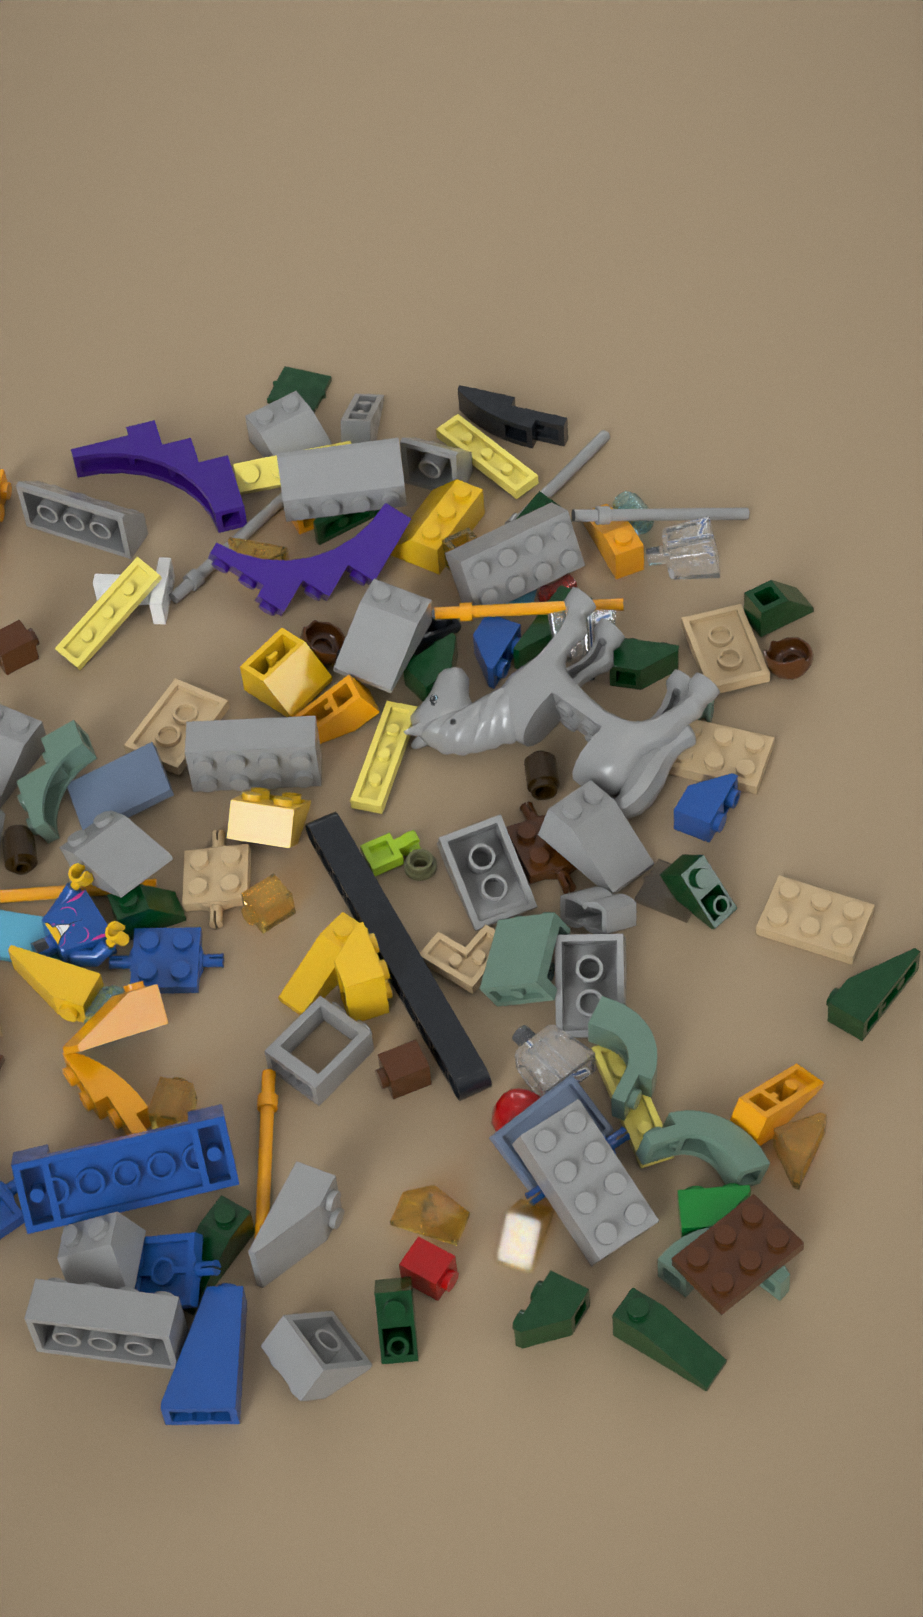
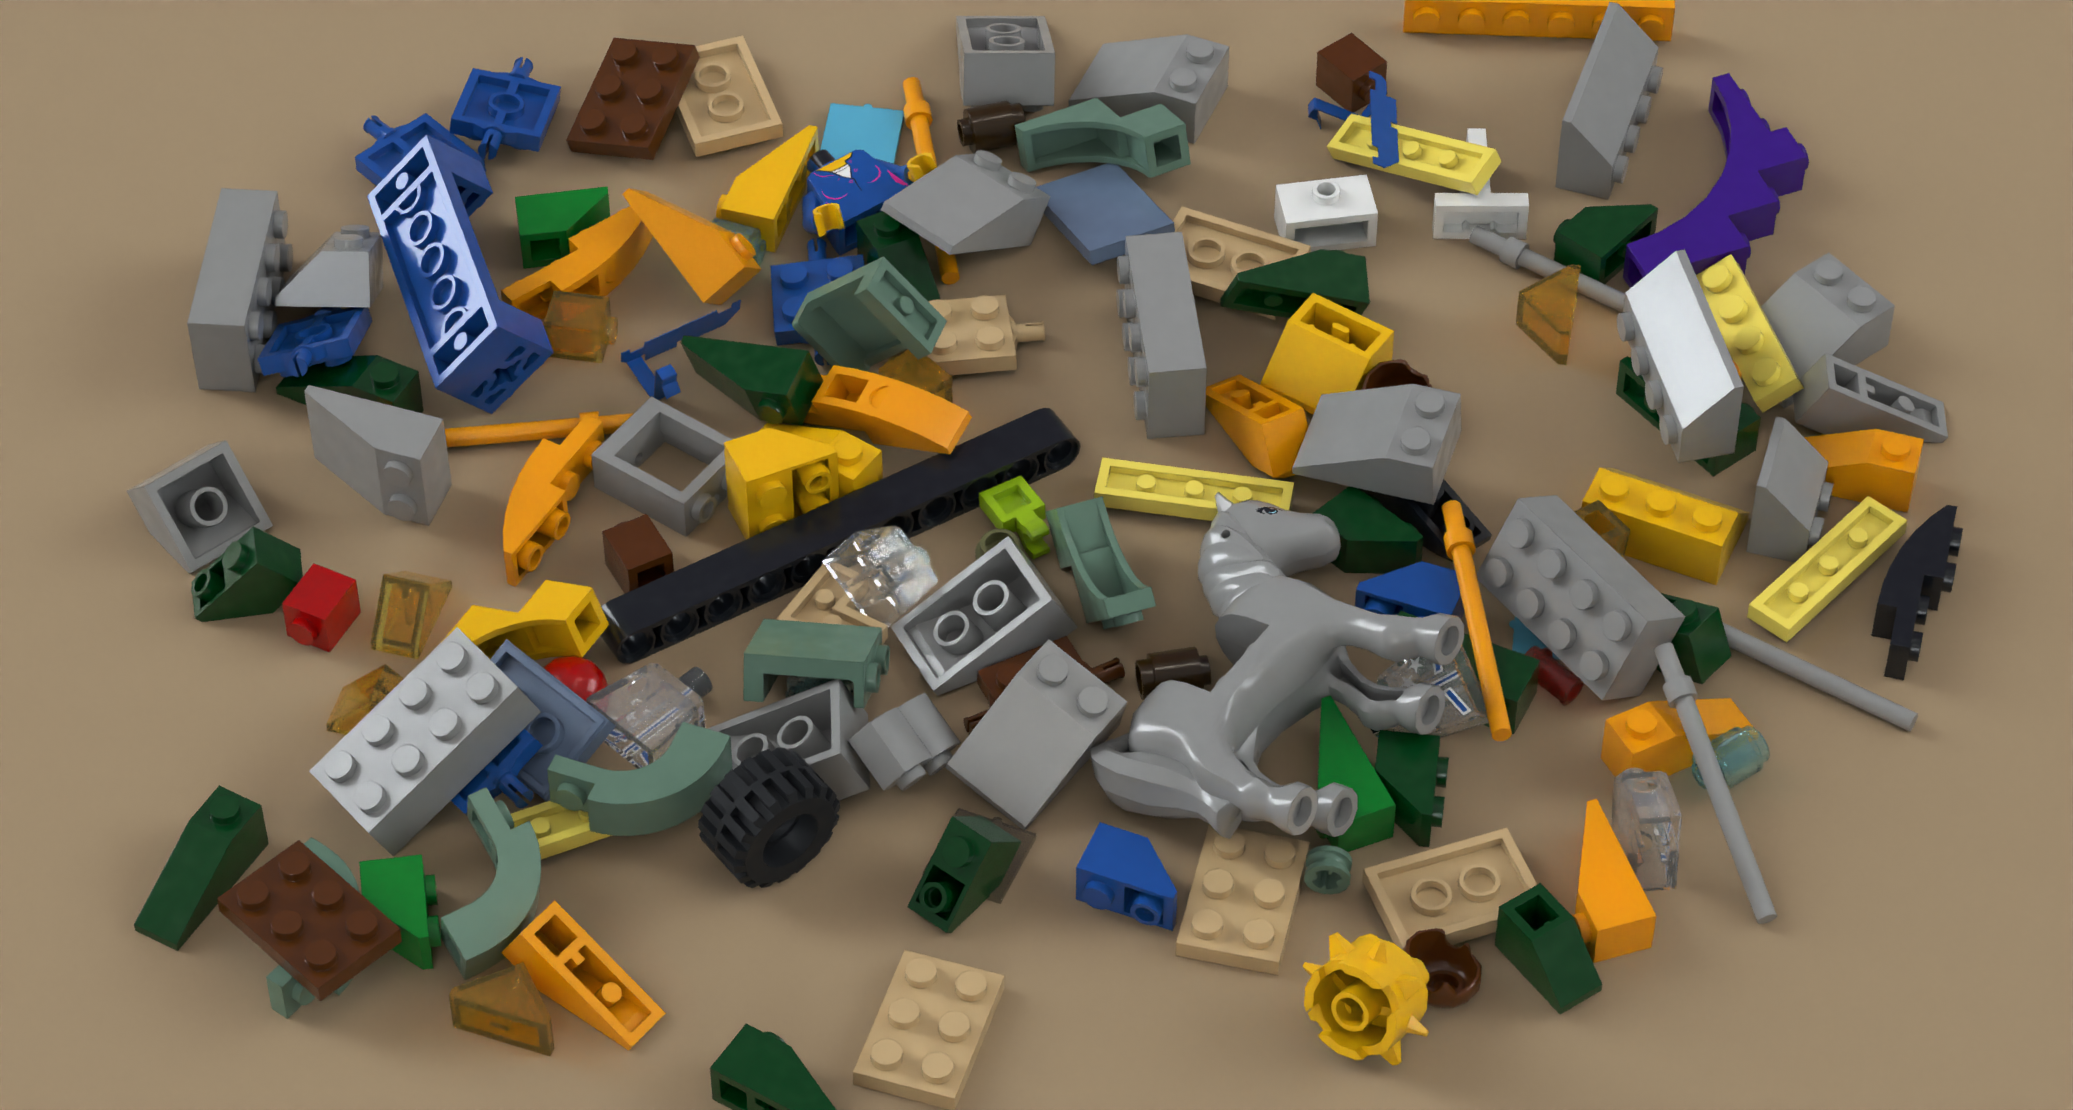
camera: 80 degrees right, 5 degrees down
(48, 635) = (1382, 113): none -> blue piece
(65, 1118) = (552, 218): none -> green slope
(144, 669) = (1327, 213): none -> white brick
(198, 531) = (1600, 235): none -> dark green slope
(211, 1363) = (192, 404): blue slope -> none
(217, 1071) = (665, 379): none -> blue piece
(220, 675) = (1287, 284): none -> dark green slope
(221, 908) = (868, 318): none -> sand green panel
(254, 988) = (763, 379): none -> dark green slope
(267, 818) = (1068, 370): yellow slope -> none
(293, 920) = (887, 411): none -> light orange slope
(309, 386) = (1940, 337): dark green piece -> none
(318, 574) = (1501, 333): dark purple arch -> none
(348, 1133) = (539, 498): none -> light orange slope
(414, 417) = (1871, 465): none -> light orange slope
(457, 911) = (882, 572): none -> clear torso
(468, 801) = (1101, 573): none -> sand green arch
(473, 1109) = (553, 623): none -> yellow arch
(553, 1312) = (254, 743): dark green slope -> none
(632, 694) = (1346, 763): none -> green slope
(665, 981) = (769, 817): none -> black tyre
(722, 577) = (1609, 899): none -> light orange slope
(818, 685) = (1367, 997): none -> yellow brick

